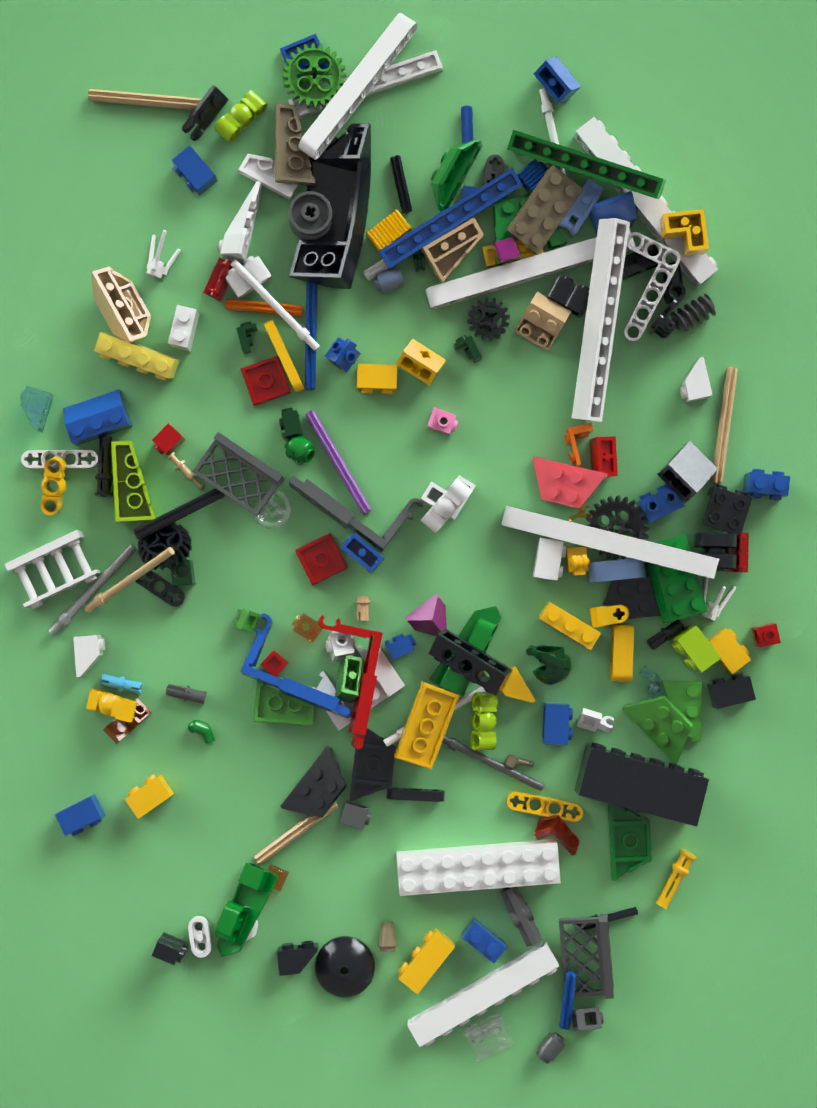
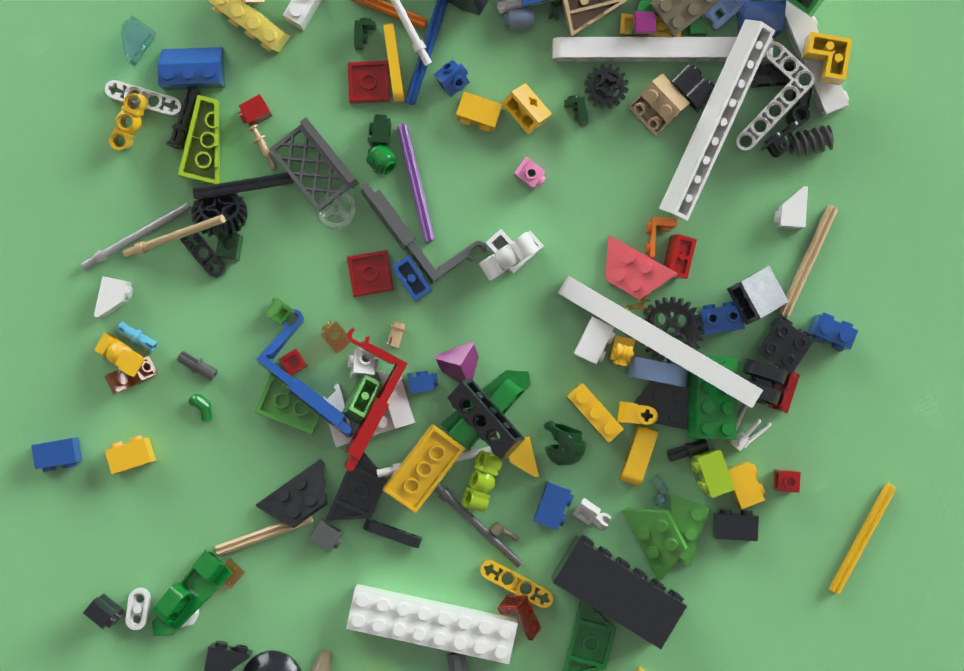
camera: 20 degrees right, 0 degrees up
(37, 558) = (111, 185): white fence -> none

